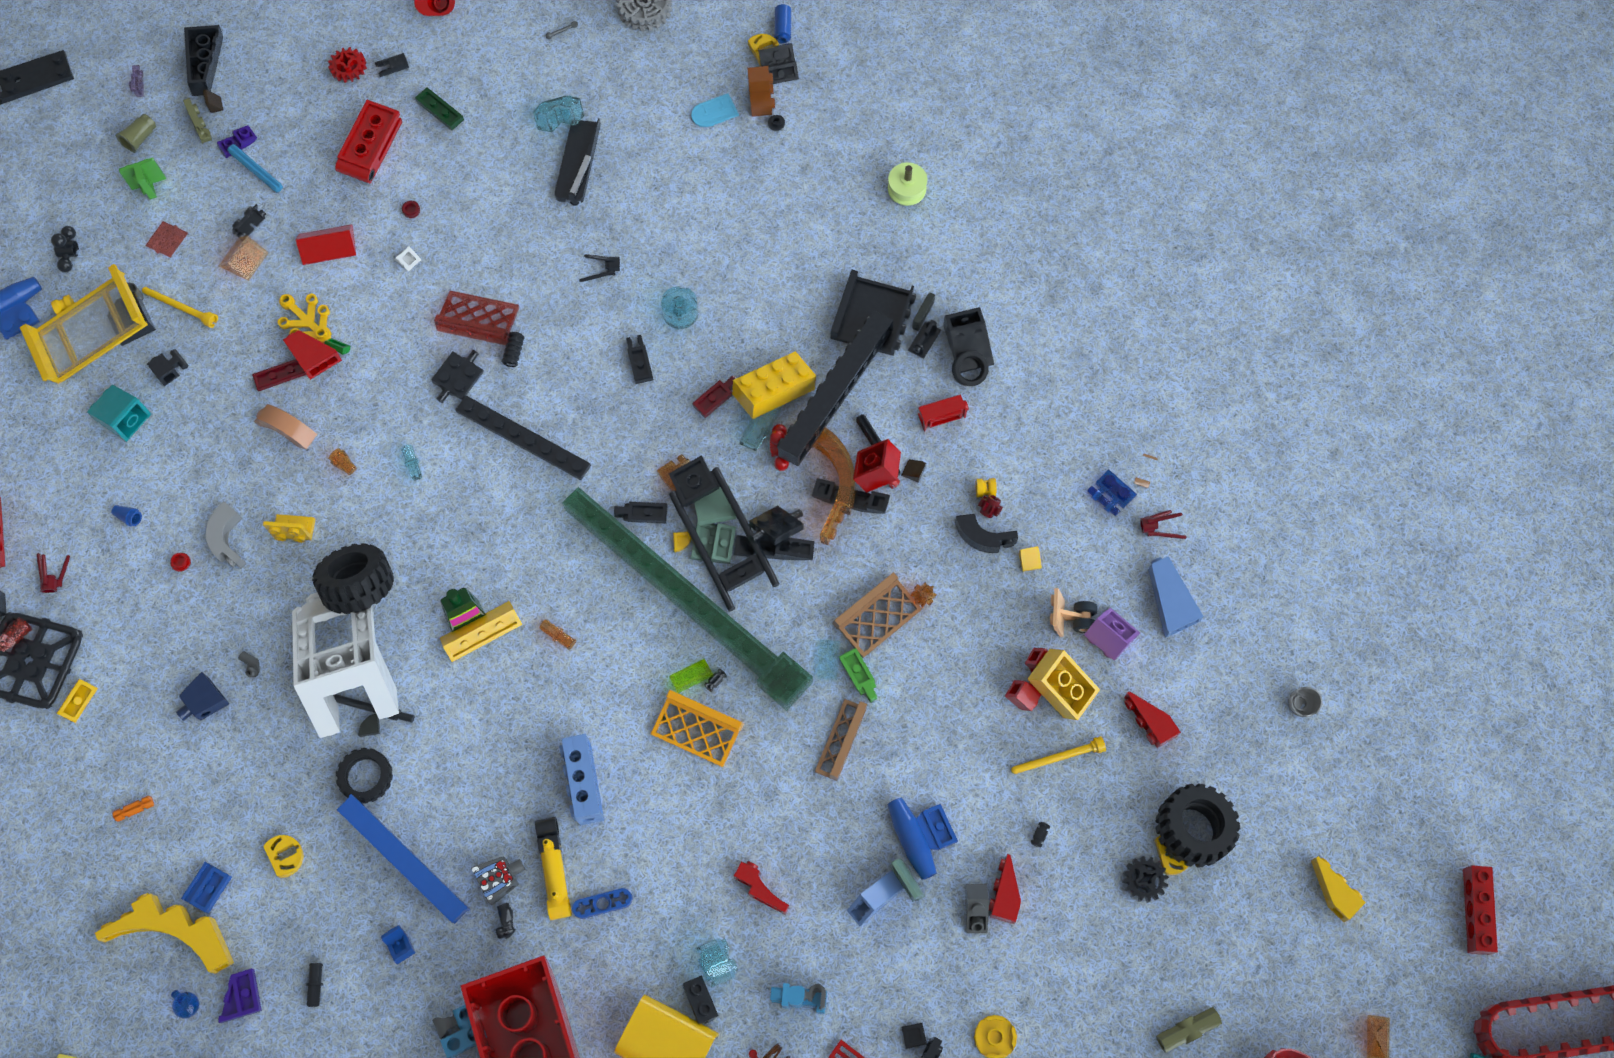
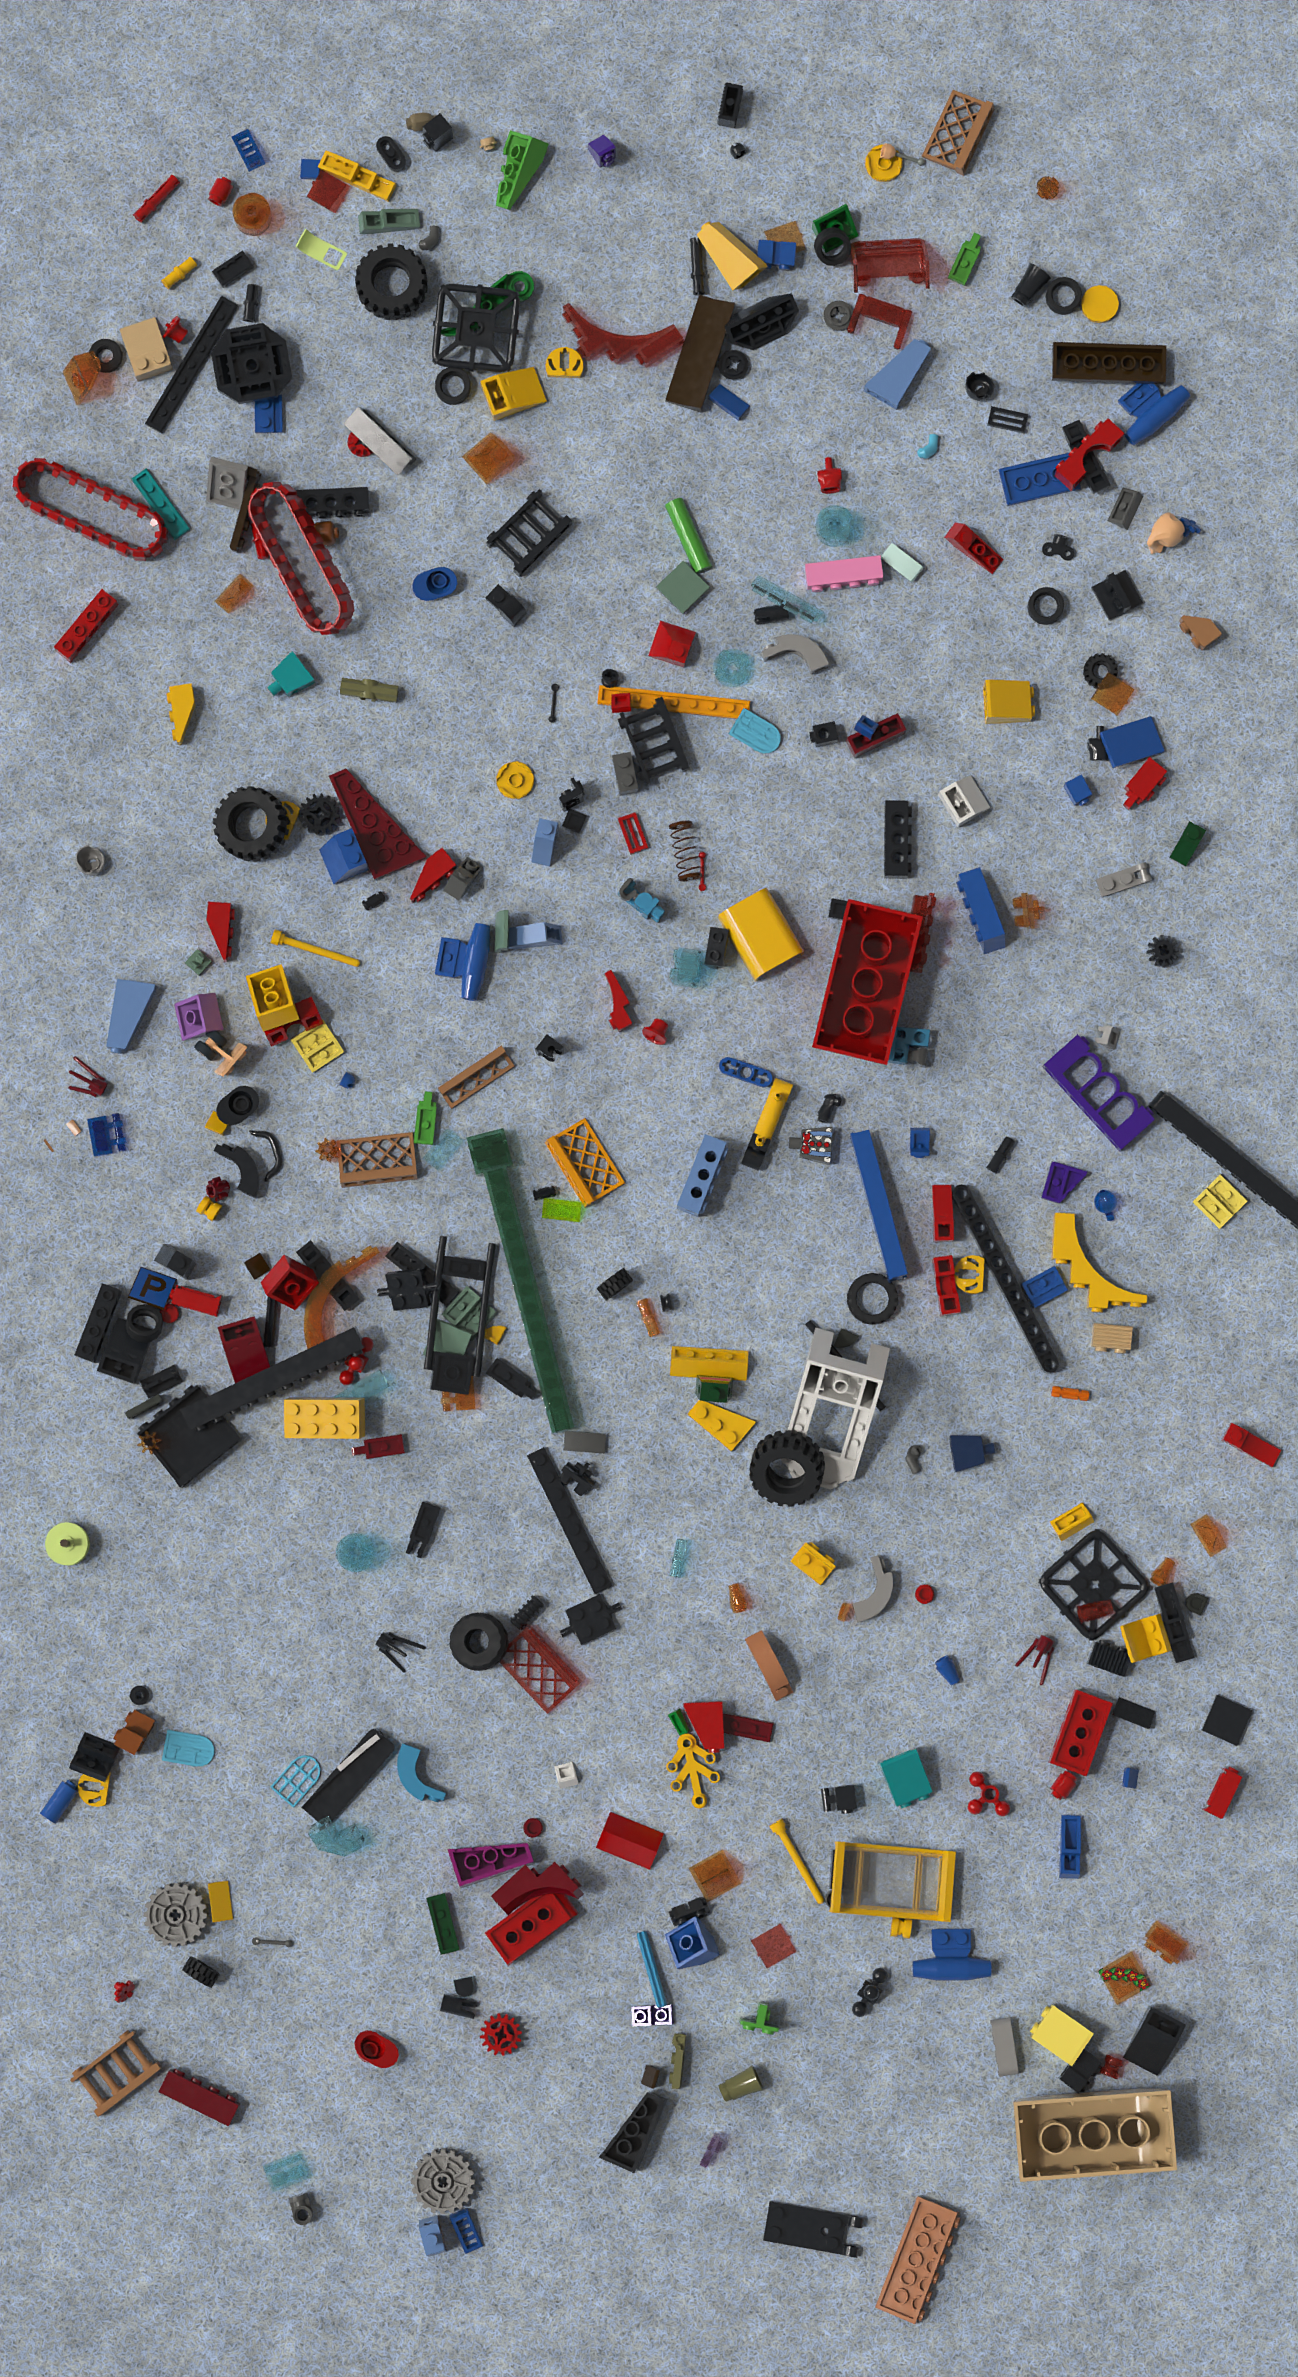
camera: 150 degrees left, 15 degrees up
(45, 426) = (975, 1806): none -> red piece
(116, 882) = (1111, 1337): none -> tan brick
(231, 198) = (691, 1944): none -> blue slope
(238, 868) = (1005, 1289): none -> black beam
(243, 505) = (843, 1613): none -> clear orange tile
(300, 827) = (945, 1285): none -> red arch
(338, 891) = (942, 1213): none -> red slope
(383, 160) = (530, 1884): none -> dark red arch
(397, 80) = (464, 1986): none -> black tile
(428, 163) = (475, 1866): none -> magenta wedge
(432, 587) = (721, 1423): none -> yellow wing
(526, 183) = (408, 1776): none -> dark azure arch
(536, 289) = (496, 1646): none -> black tyre
(536, 473) = (580, 1475): none -> black hips
(547, 502) = (584, 1442): none -> dark grey slope
(549, 655) = (666, 1302): none -> black bush
(602, 639) = (614, 1284): none -> black tyre
(618, 31) = (220, 1901): none -> yellow slope
(621, 141) = (289, 1781): none -> medium azure window
(707, 885) = (656, 1032): none -> red piece
(794, 804) = (547, 1047): none -> black hinge
(878, 400) = (244, 1348): none -> dark red slope
(899, 281) = (154, 1440): none -> clear orange gear
(926, 992) = (544, 842): none -> medium blue slope
(948, 663) = (347, 1080): none -> blue hinge
(956, 389) = (170, 1313): none -> red tile
(967, 570) = (276, 1151): none -> black animal
(980, 426) = (175, 1261): none -> black slope
(984, 399) = (152, 1288): none -> blue piece
(995, 675) = (317, 1046): none -> light yellow slope
(1006, 347) = (98, 1323): none -> black brick
(1024, 578) = (237, 1105): none -> black piece
(1081, 897) = (379, 837): none -> dark red wing
(1094, 855) = (343, 856): none -> blue slope
(1147, 679) = (198, 962): none -> sand green tile
(1268, 991) = (290, 676): none -> teal torso

